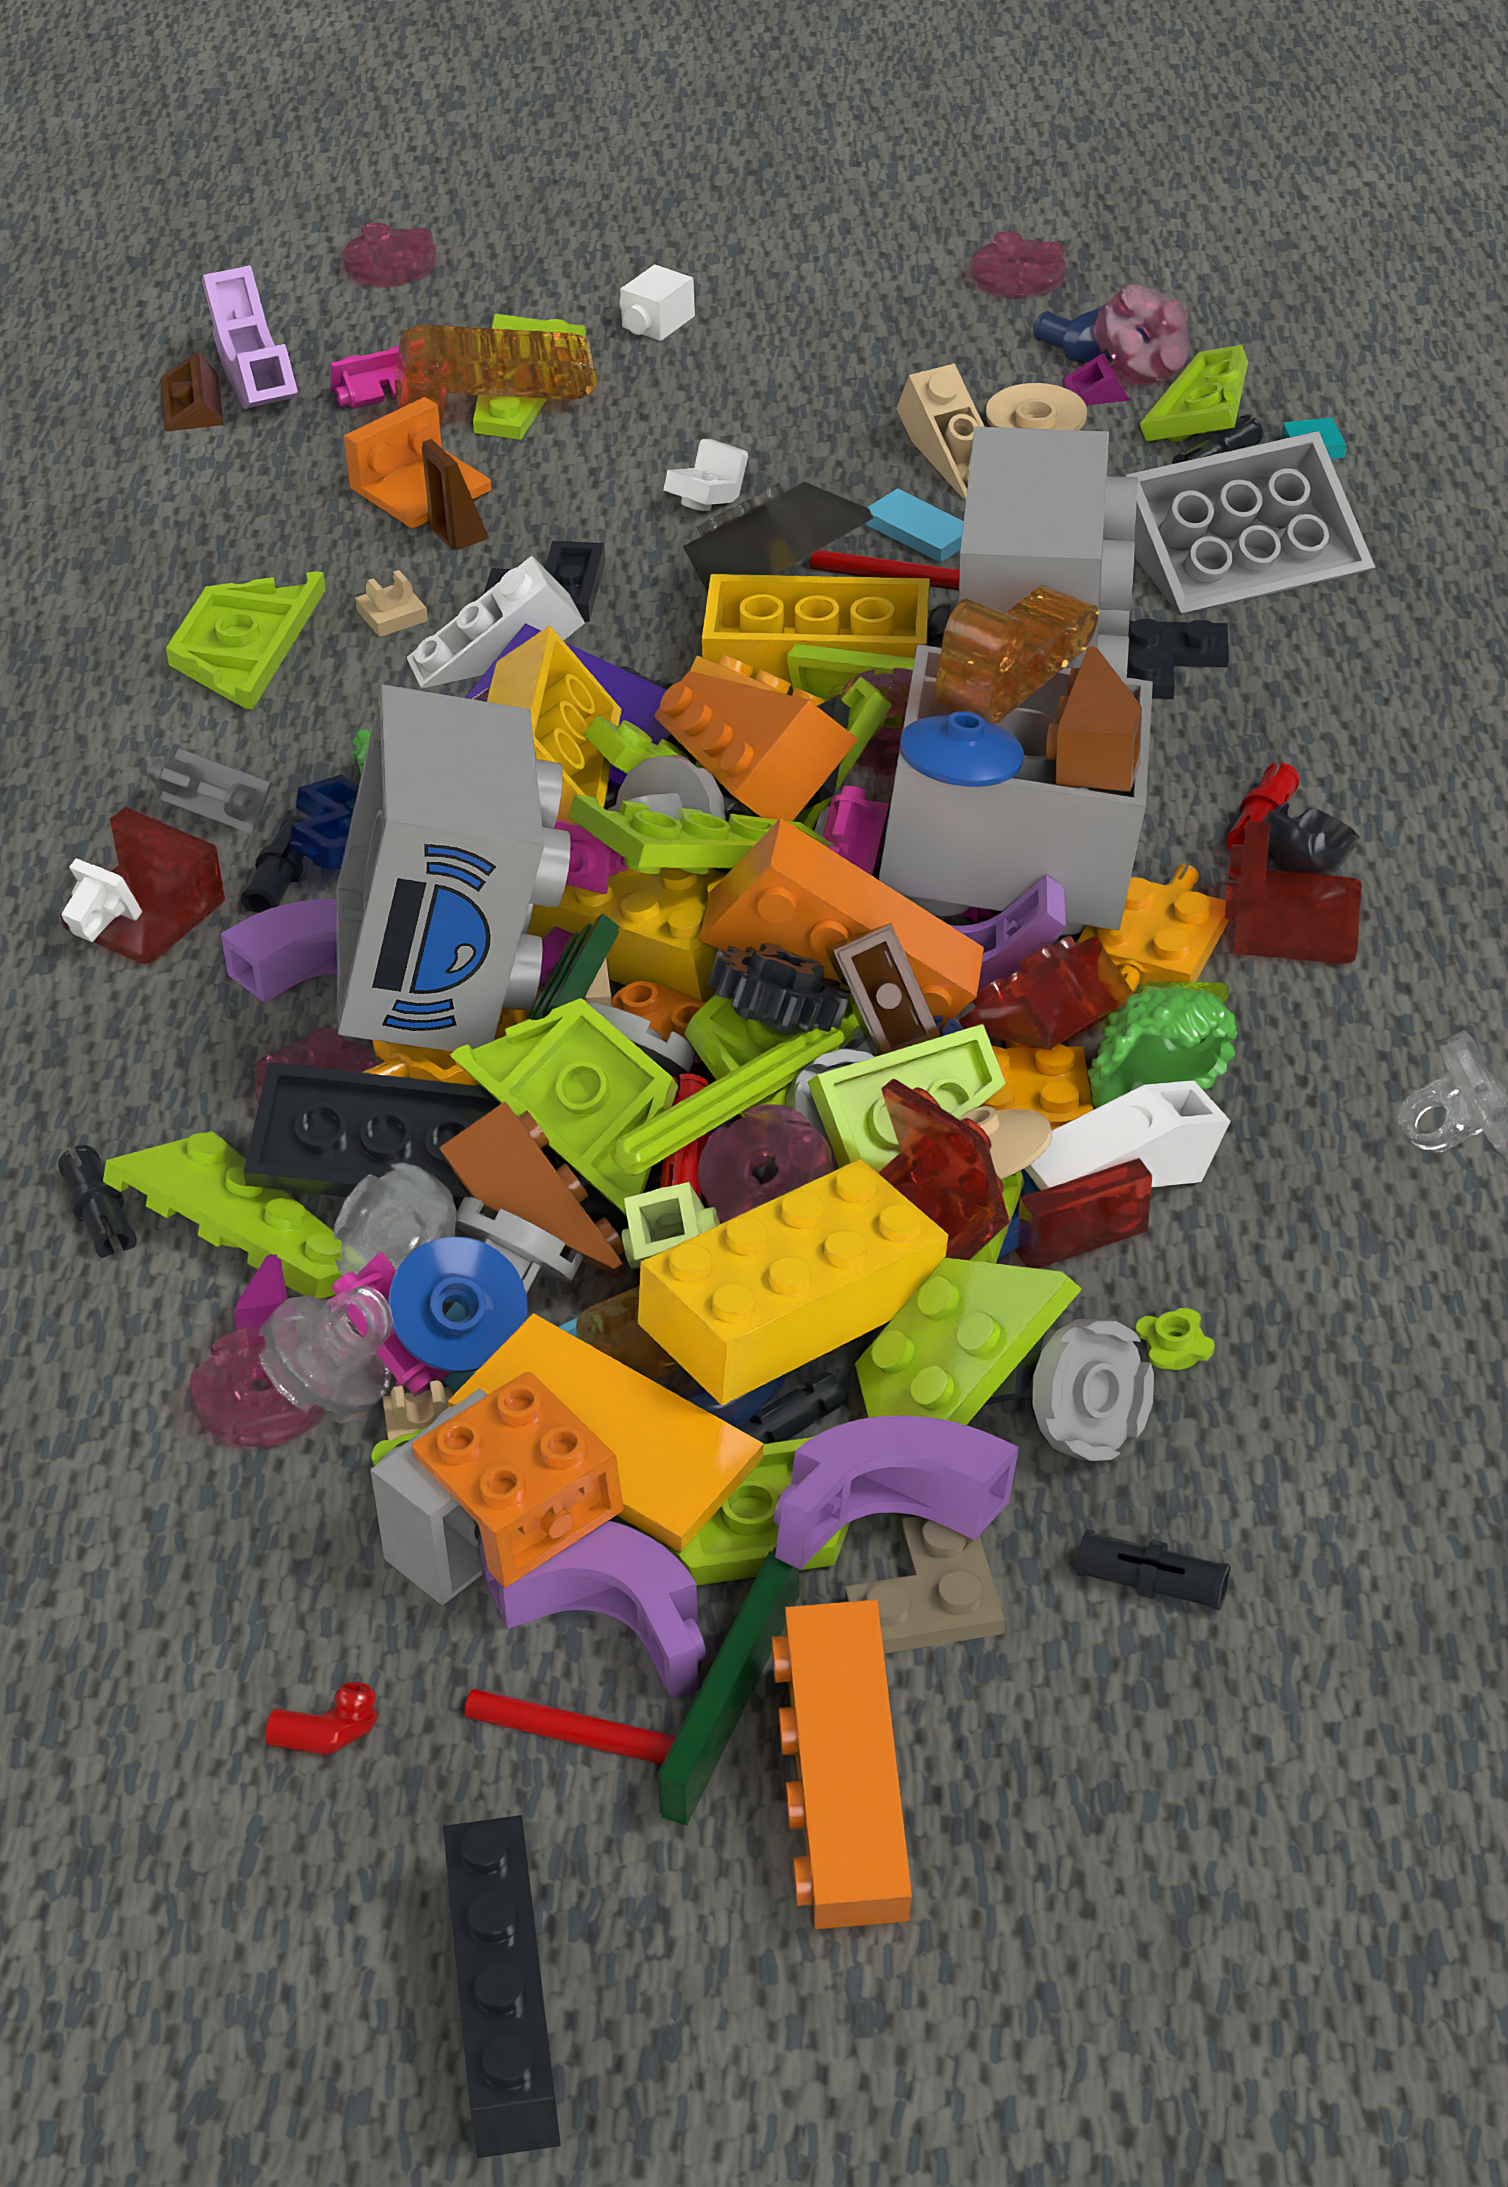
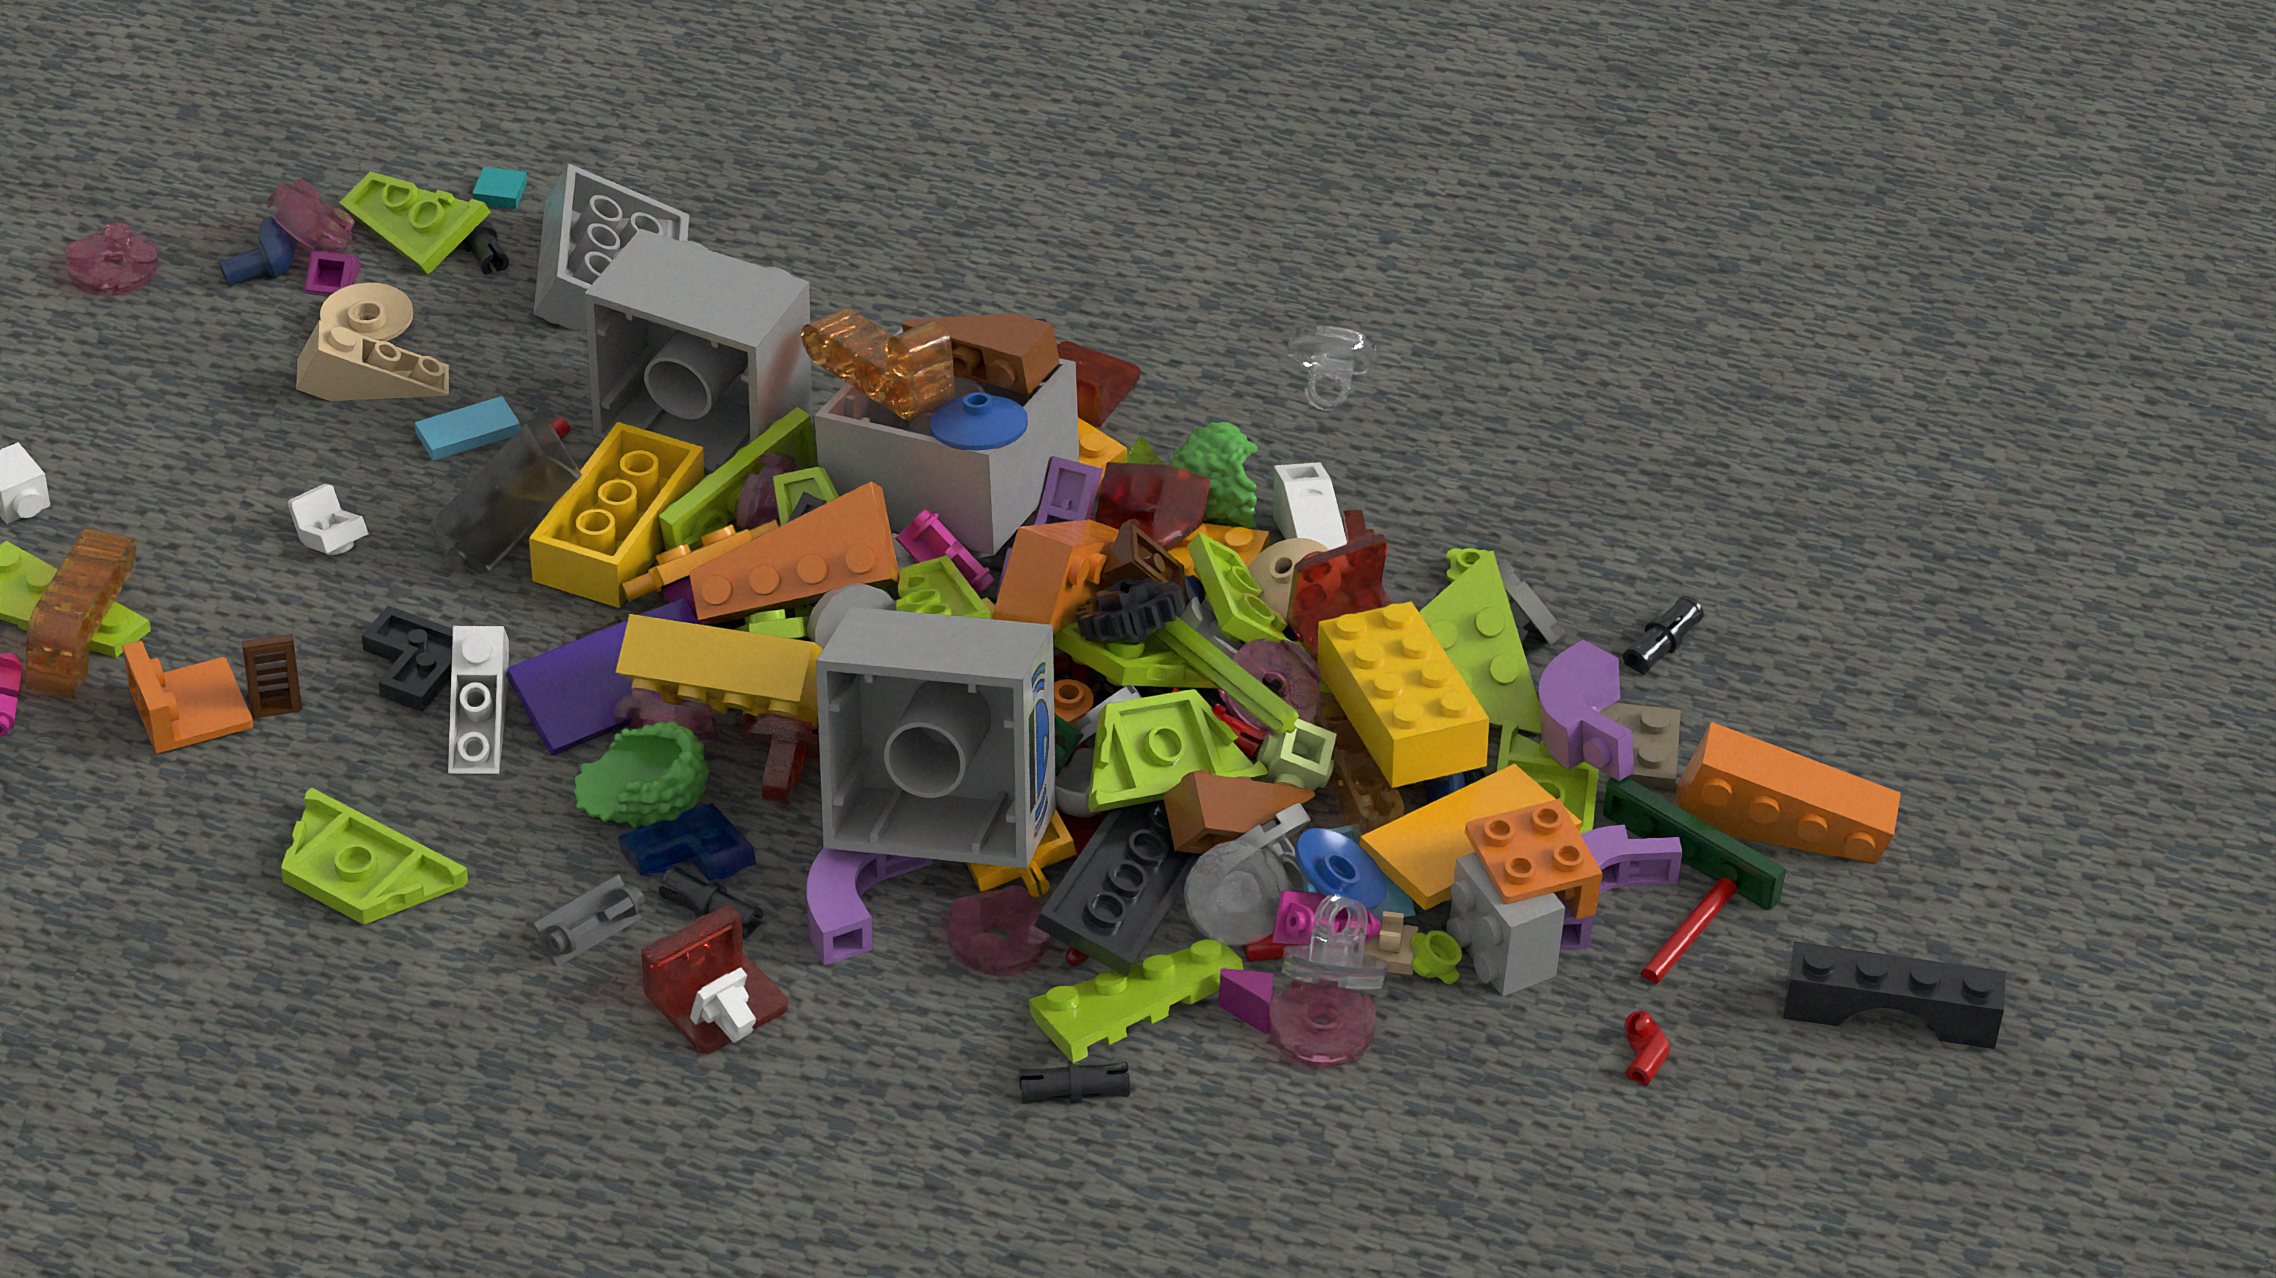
camera: 75 degrees left, 0 degrees up
(391, 607) = (375, 762): tan tile -> none

